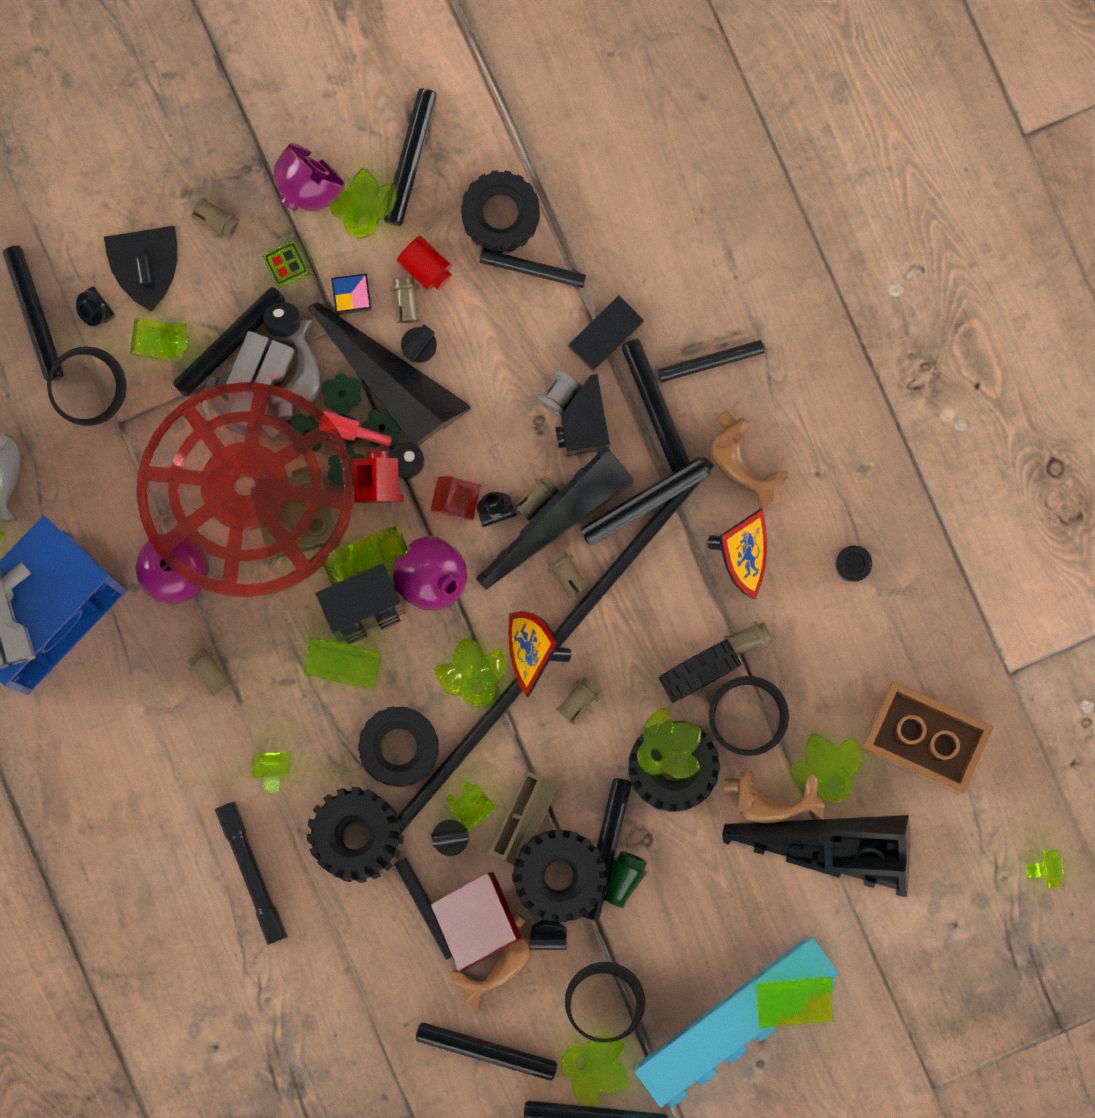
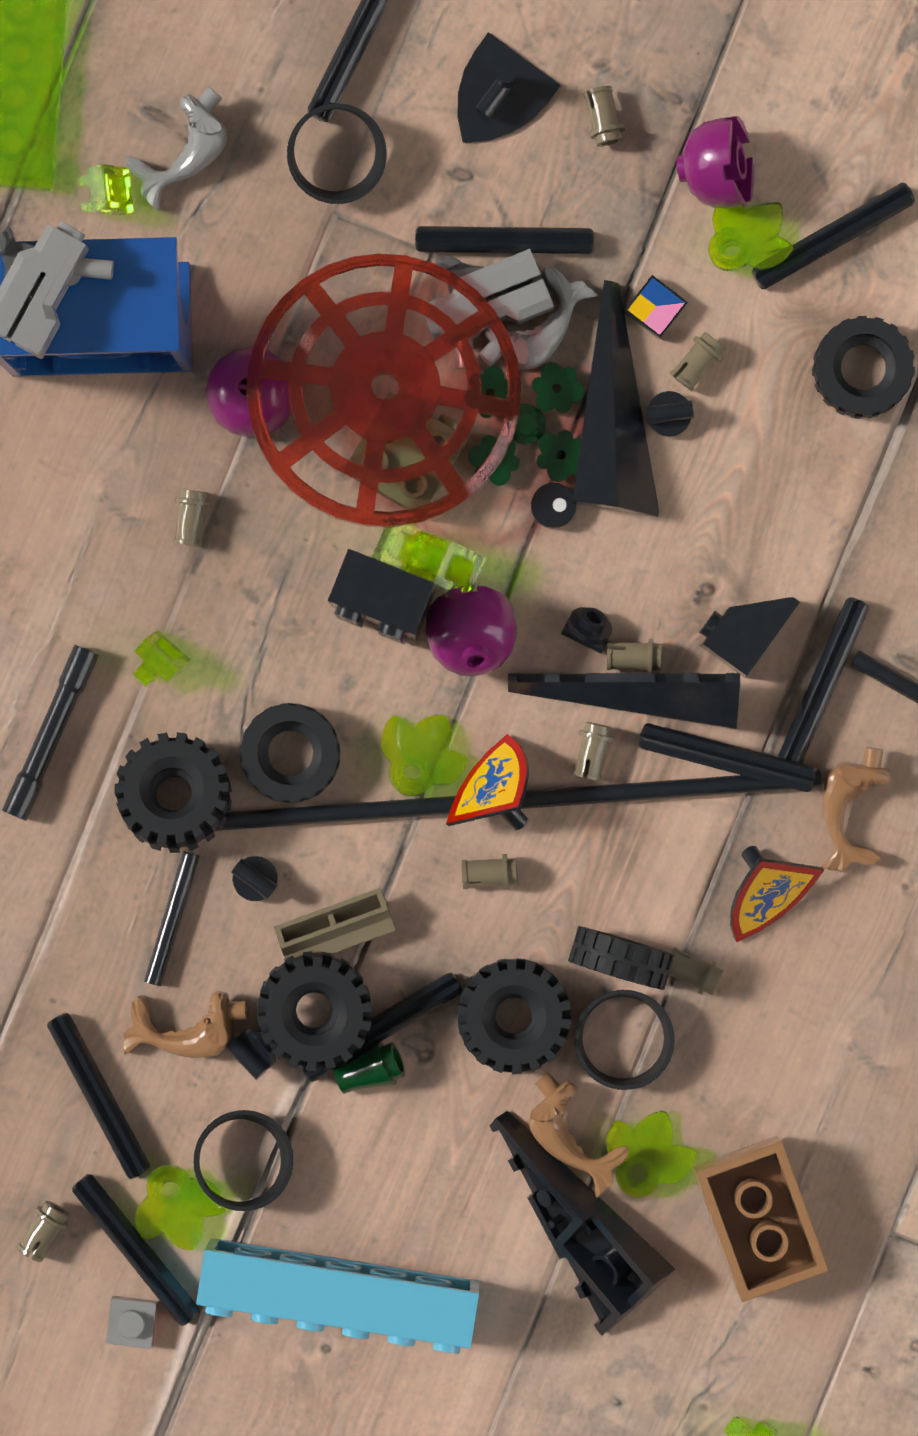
camera: 50 degrees right, 5 degrees up
(93, 308) = (414, 87): black plate -> none
(159, 340) = (443, 176): clear neon green bracket -> none
(281, 319) = (569, 268): black tile -> none
(286, 264) = (624, 221): clear neon green tile -> none
(342, 663) = (315, 629): clear neon green panel -> none
(351, 429) = (531, 430): coral axle -> none
(376, 478) = (510, 496): red brick -> none
(425, 264) = (748, 347): red brick -> none
(455, 497) = (563, 582): clear red slope -> none
(471, 806) = (300, 871): clear neon green tile -> none
(476, 921) = (202, 976): tile -> none
(532, 268) = (840, 447): black bar -> none
(559, 392) = (750, 583): light grey bush -> none
(605, 333) = (846, 571): black tile -> none
(673, 742) = (532, 999): clear neon green plate -> none
(794, 1002) = (405, 1333): clear neon green panel -> none
(853, 563) = (855, 999): black tile -> none

